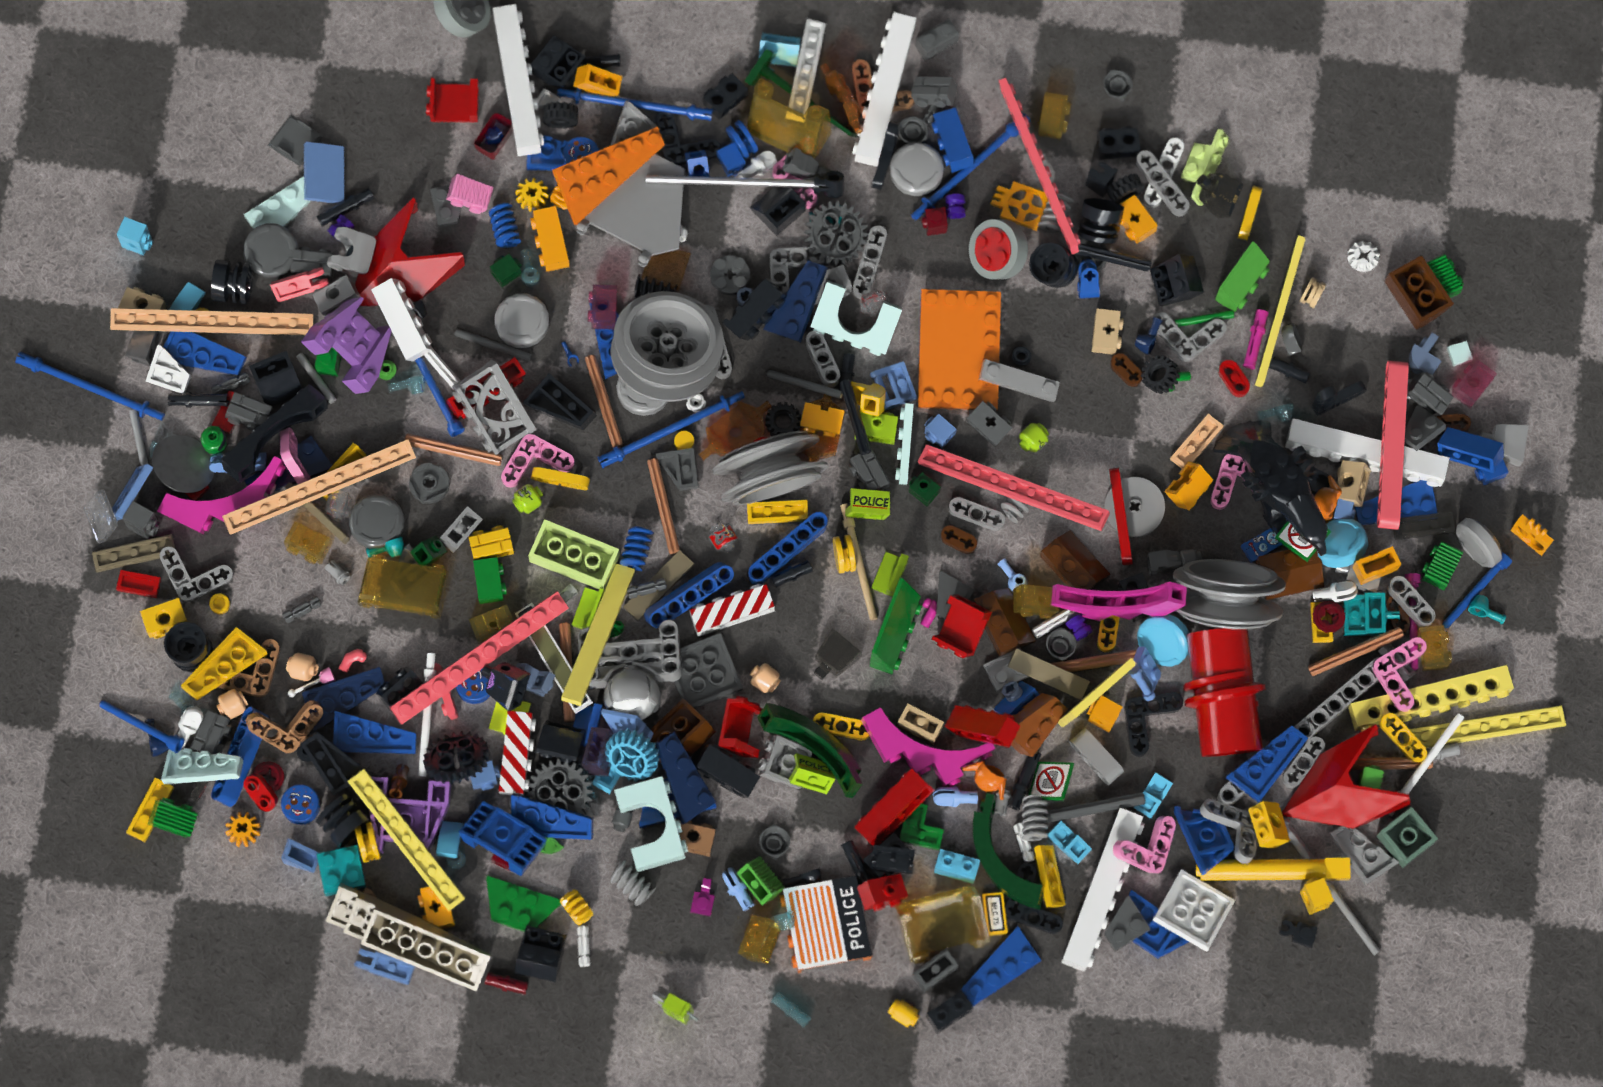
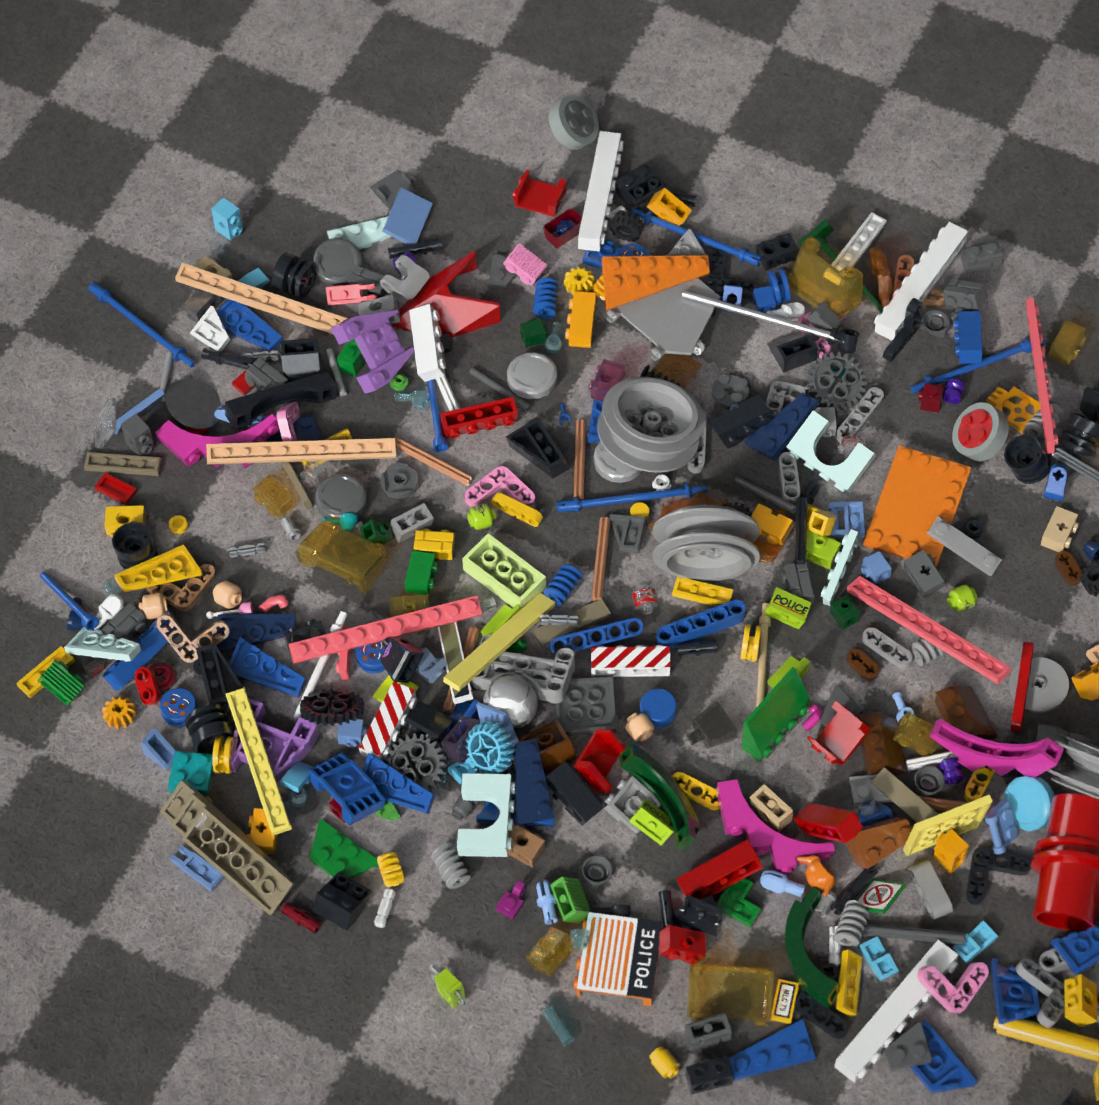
camera: 25 degrees right, 15 degrees down
(187, 582) = (157, 498): light grey beam -> none
(216, 445) = (226, 391): green head -> none
(399, 781) = (273, 712): reddish brown pin -> none
(518, 417) = (498, 448): light grey fence -> none
(775, 650) = (659, 707): none -> blue head
(784, 46) = (842, 231): medium azure panel -> none
(916, 169) = (928, 353): light grey piece -> none
(956, 866) = (762, 945): medium azure brick -> none
(1194, 910) = (981, 1057): white plate -> none

